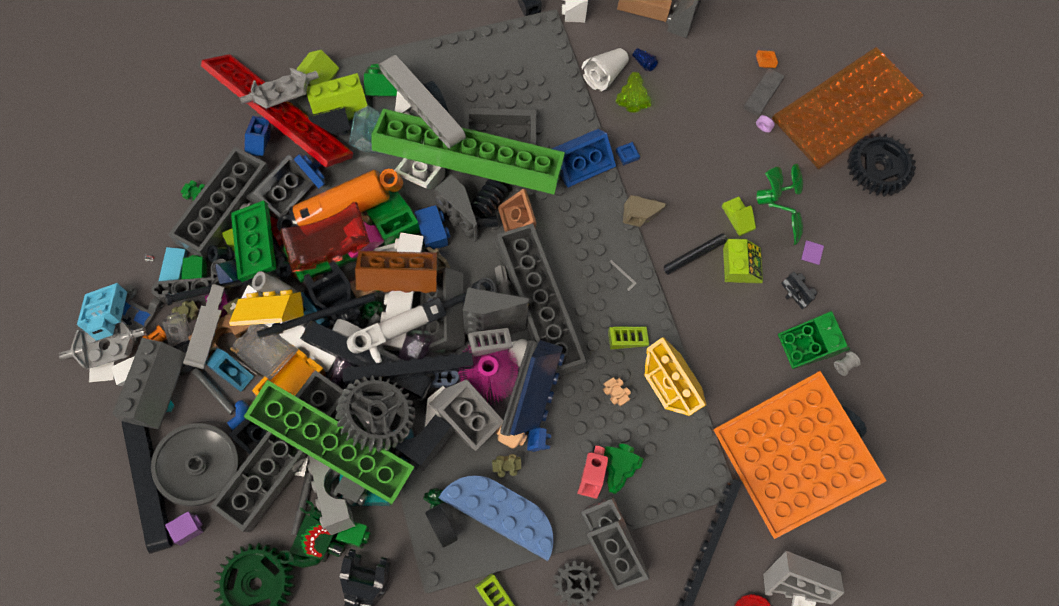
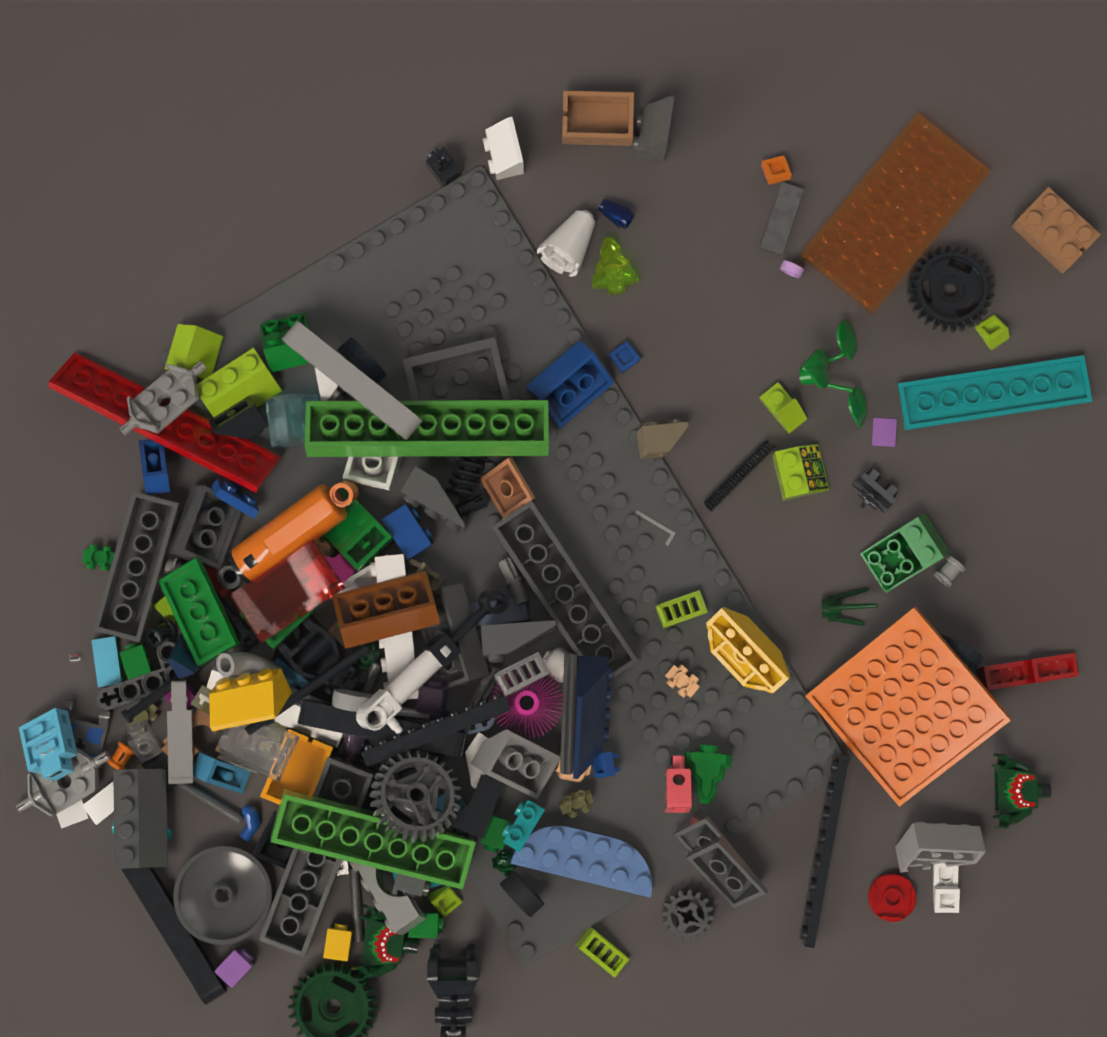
camera: 10 degrees left, 15 degrees up
(277, 530) = (338, 942): none -> yellow brick
(376, 519) = (444, 900): none -> lime slope
(434, 472) = (494, 837): none -> green brick
(462, 465) = (518, 833): none -> teal plate
(750, 366) = (832, 607): none -> dark green plant
(875, 549) = (1015, 790): none -> dark green torso
(903, 243) = (994, 392): none -> teal plate
(904, 458) = (1028, 671): none -> red slope
(908, 203) = (993, 331): none -> lime slope
(966, 144) = (1055, 230): none -> medium nougat piece

